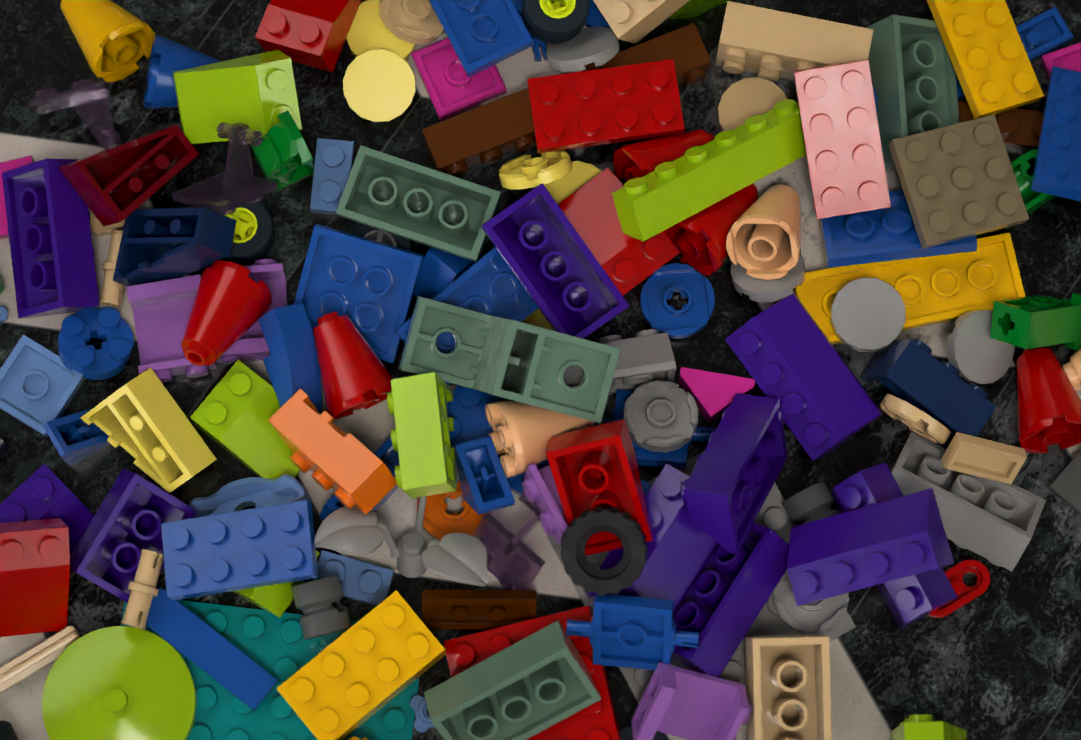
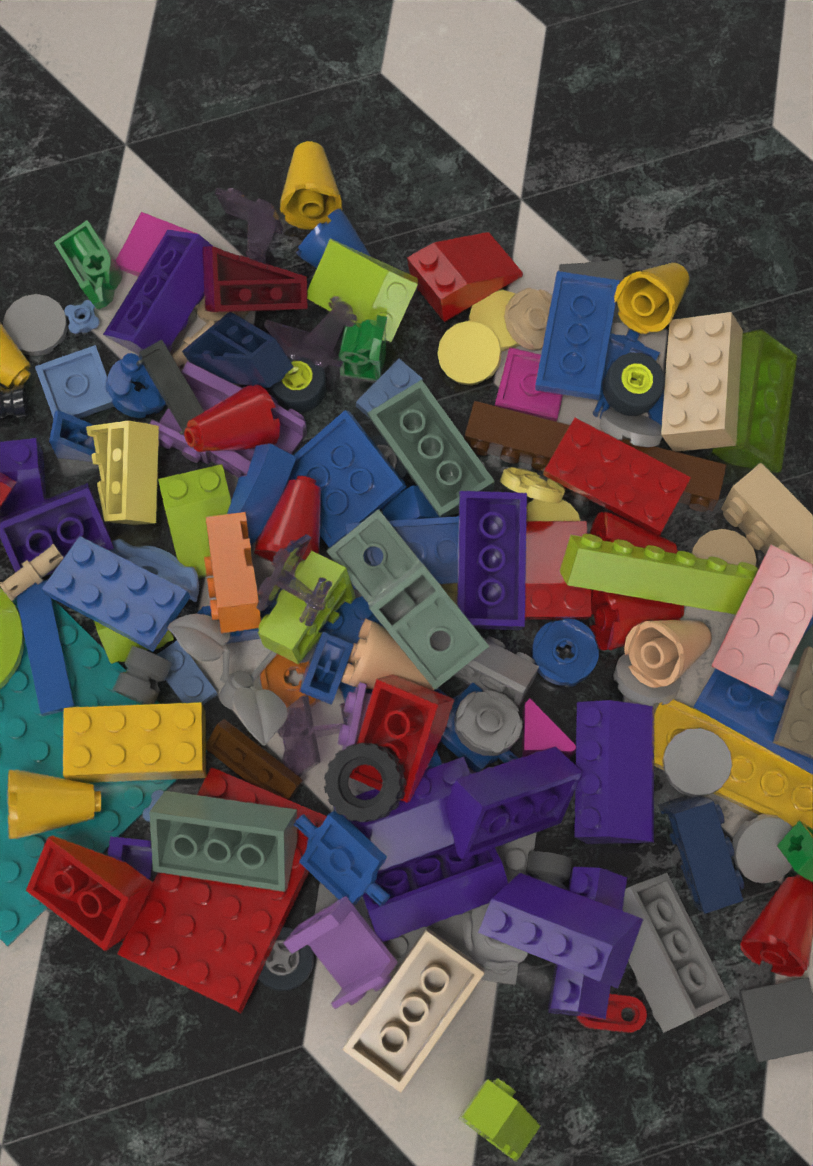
camera: 35 degrees right, 5 degrees down
(133, 321) = (170, 383): none -> pearl dark grey container
(387, 425) = (282, 578): none -> plate
(915, 419) = (674, 864): tan tile -> none
(983, 458) = (705, 932): tan tile -> none

